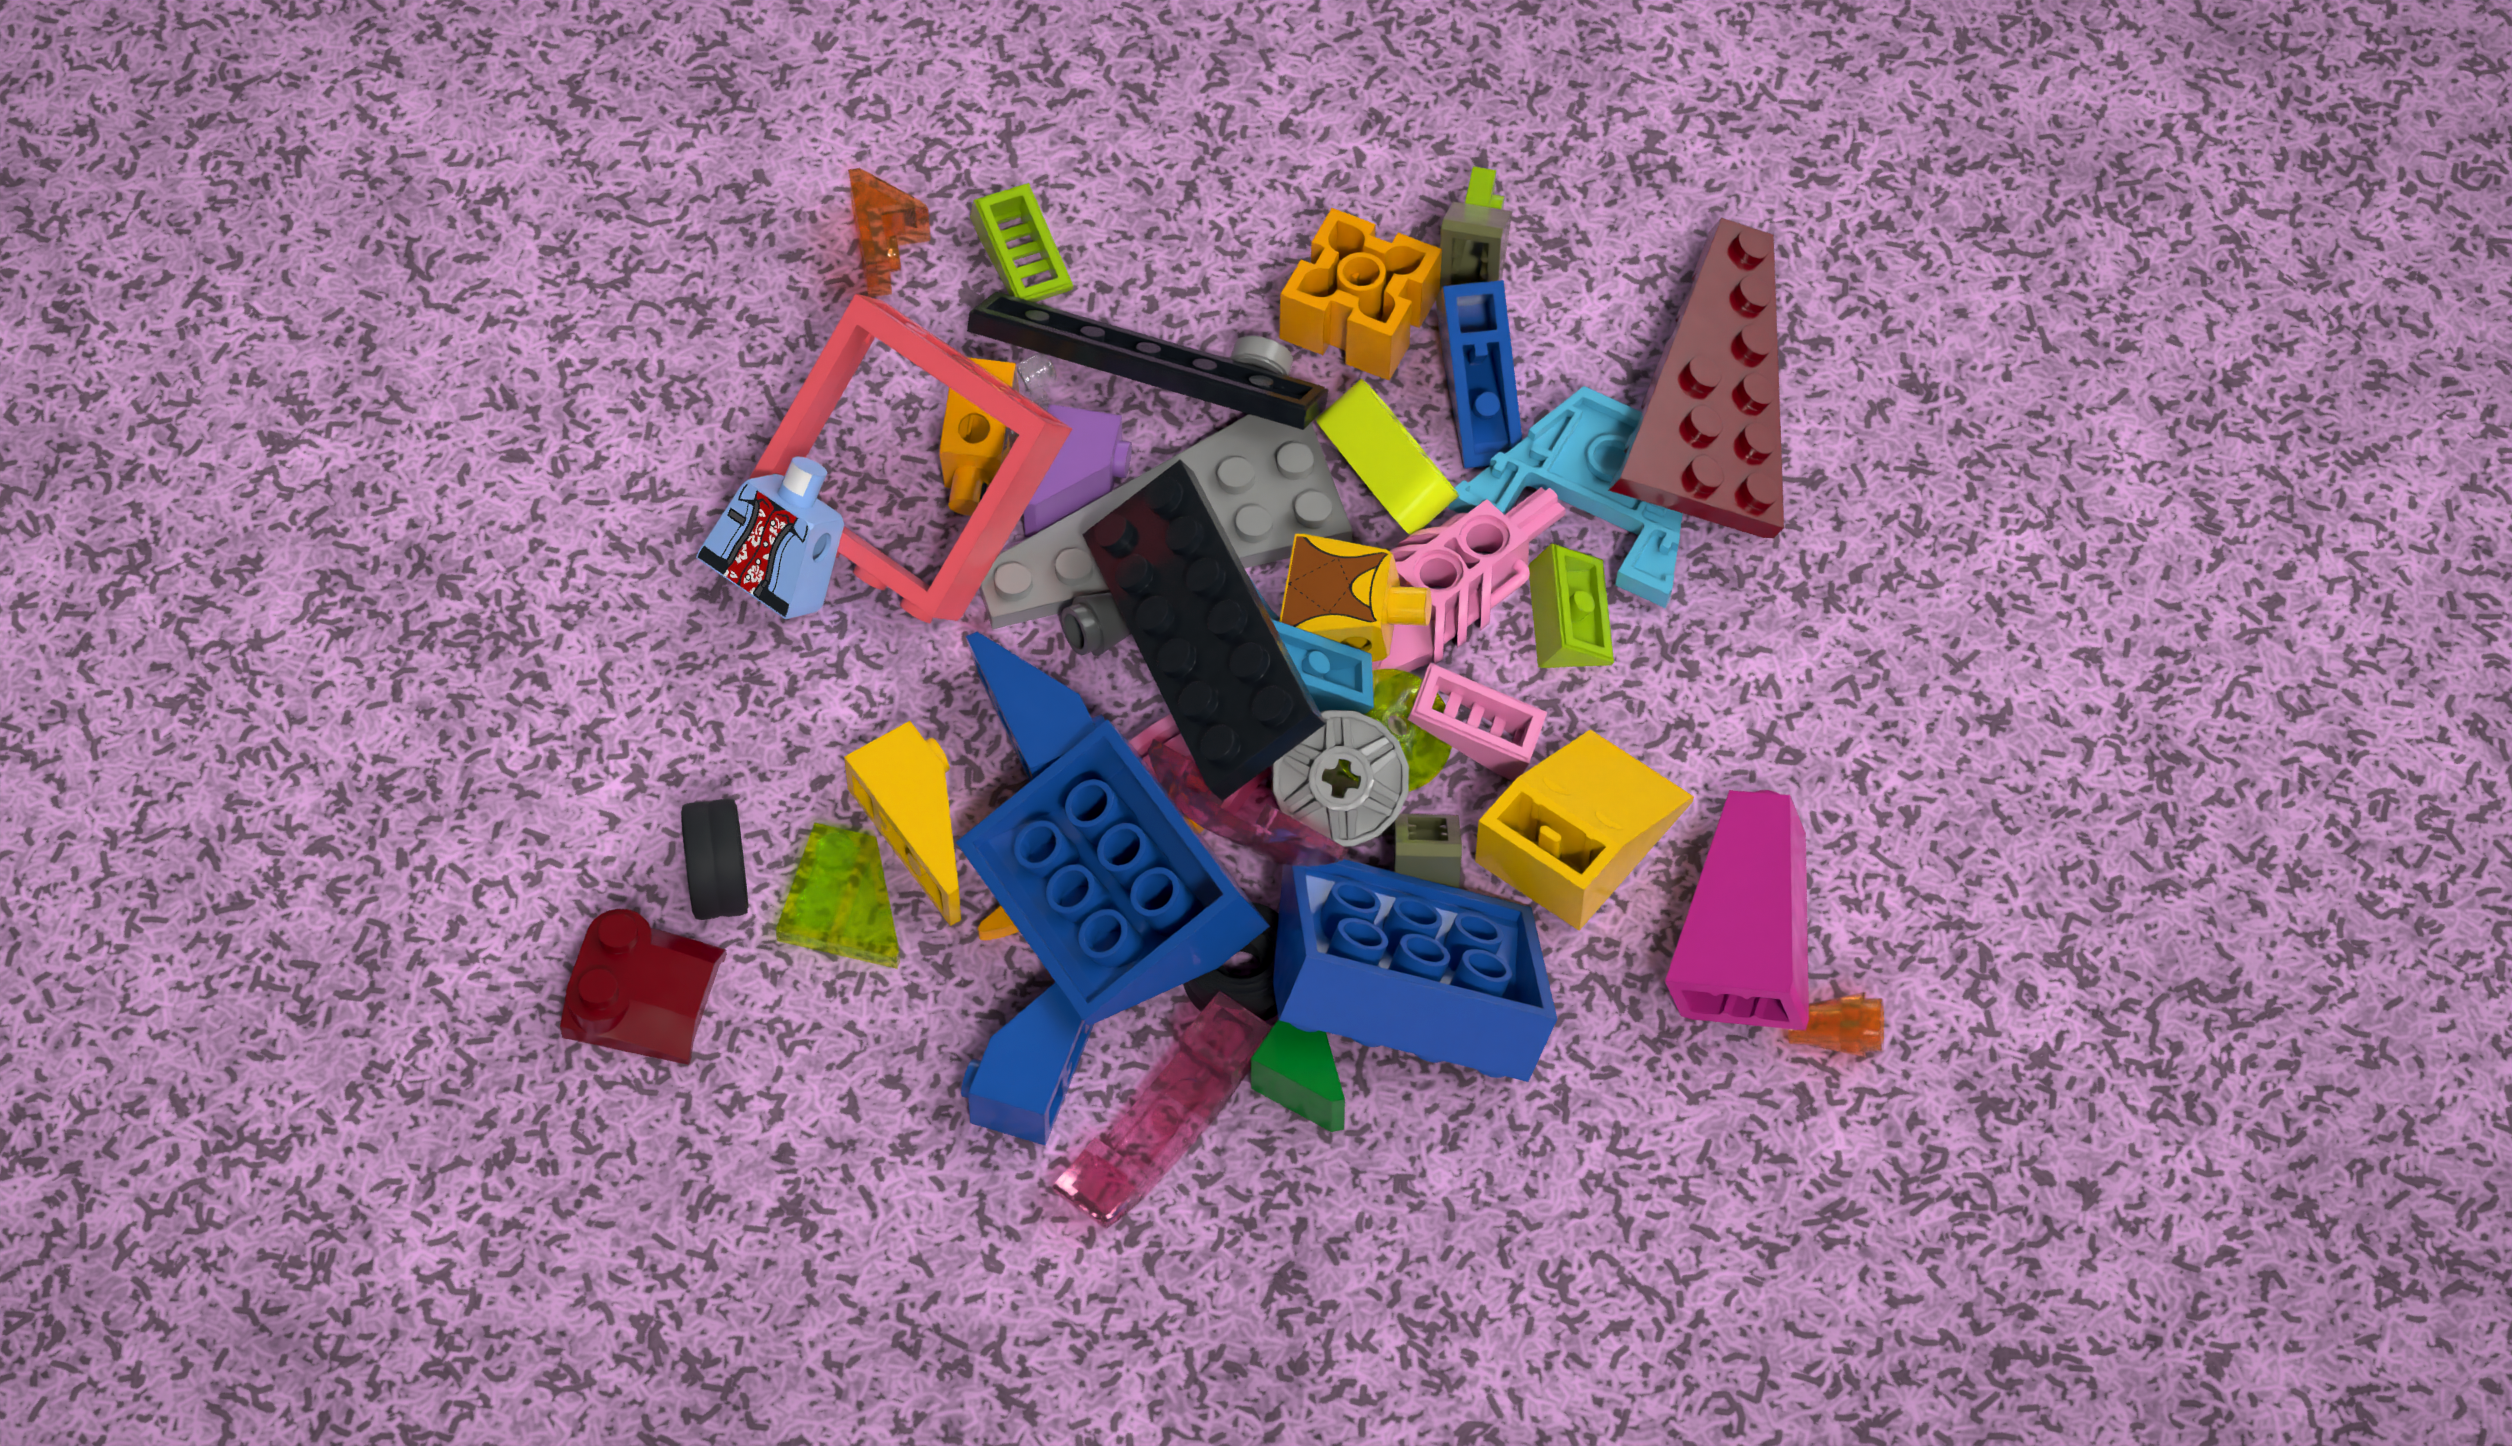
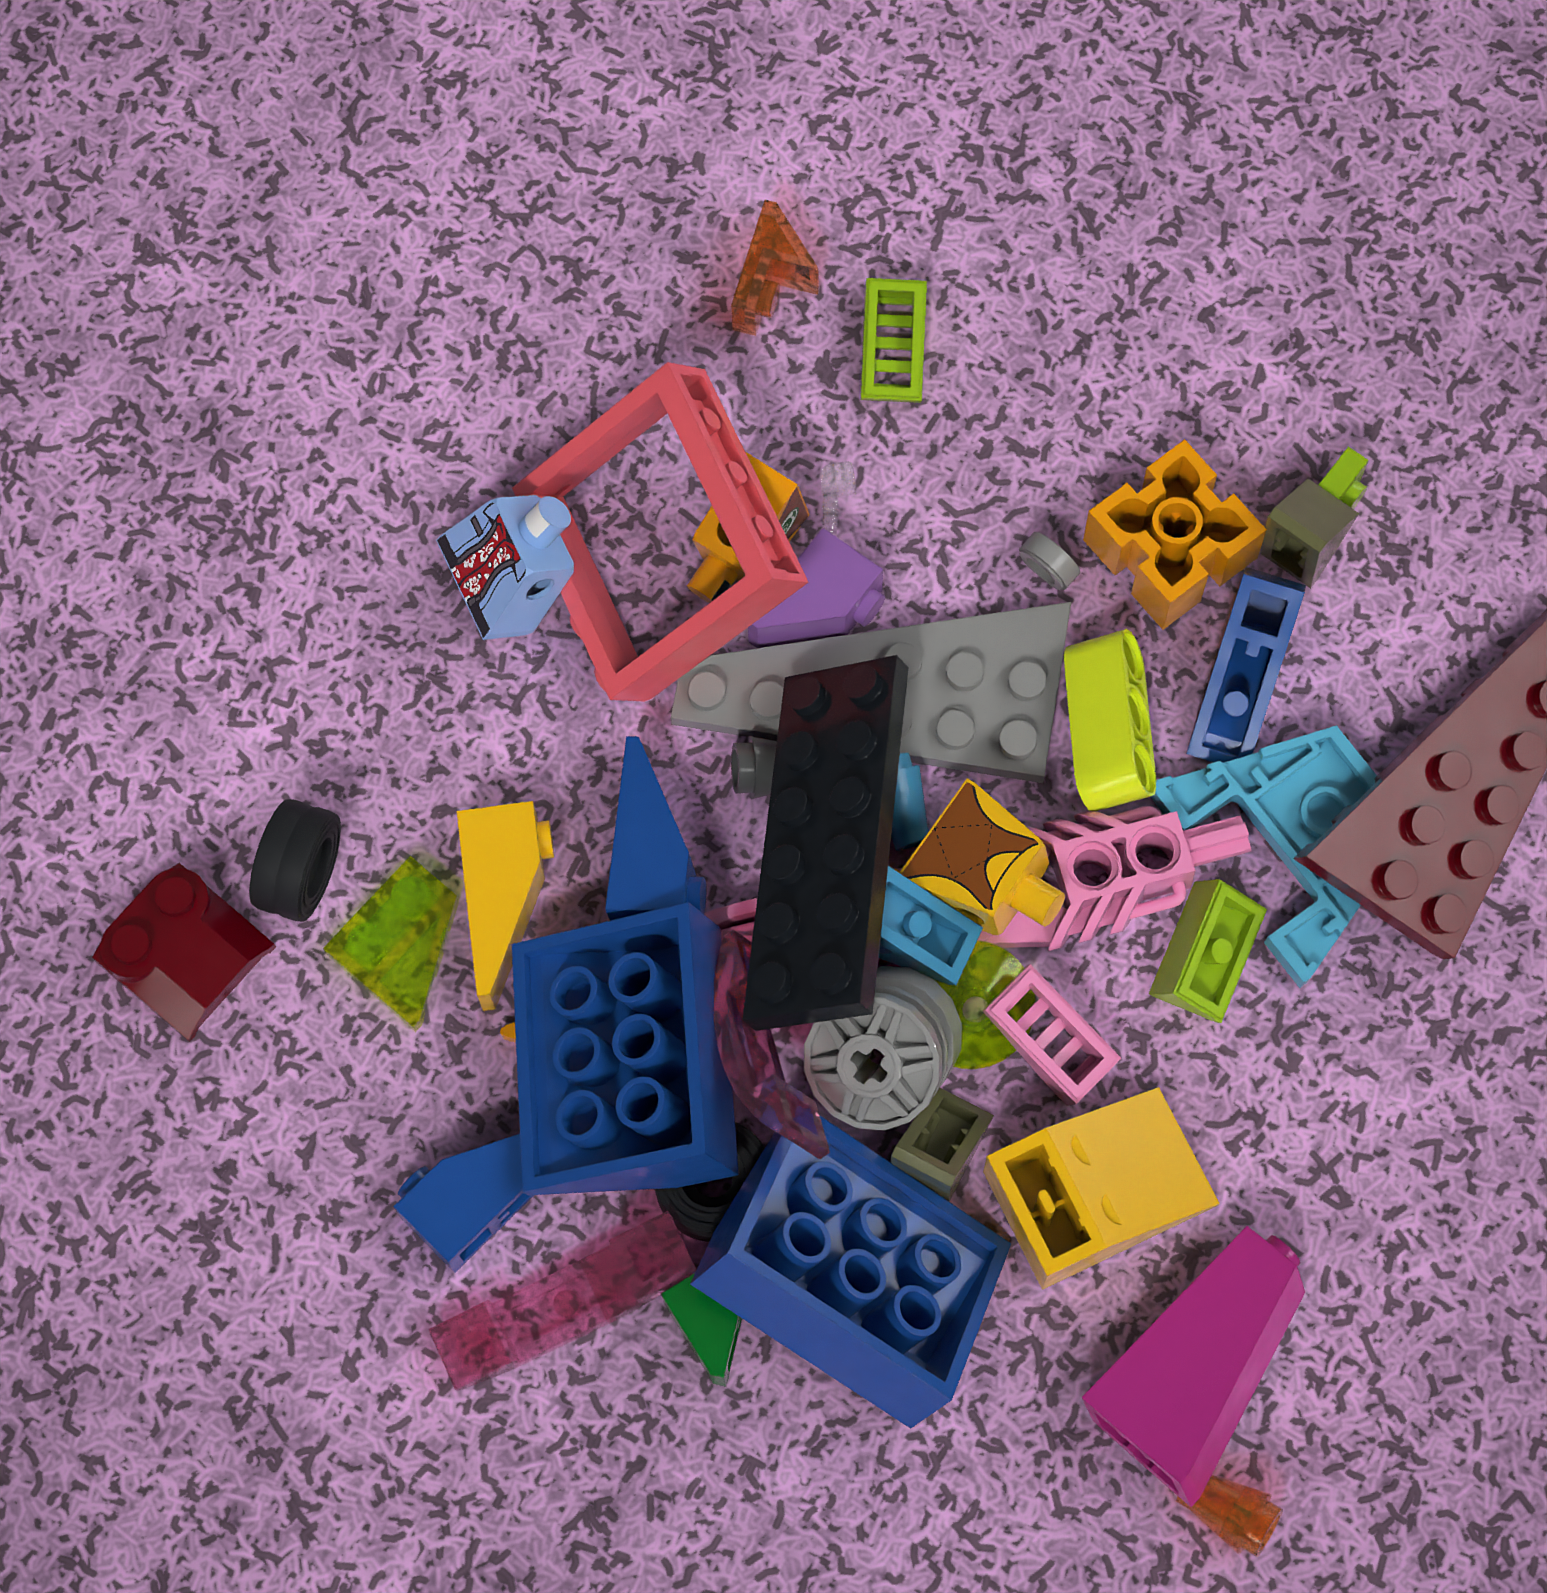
camera: 30 degrees right, 15 degrees up
(1148, 360) = (944, 517): black tile -> none

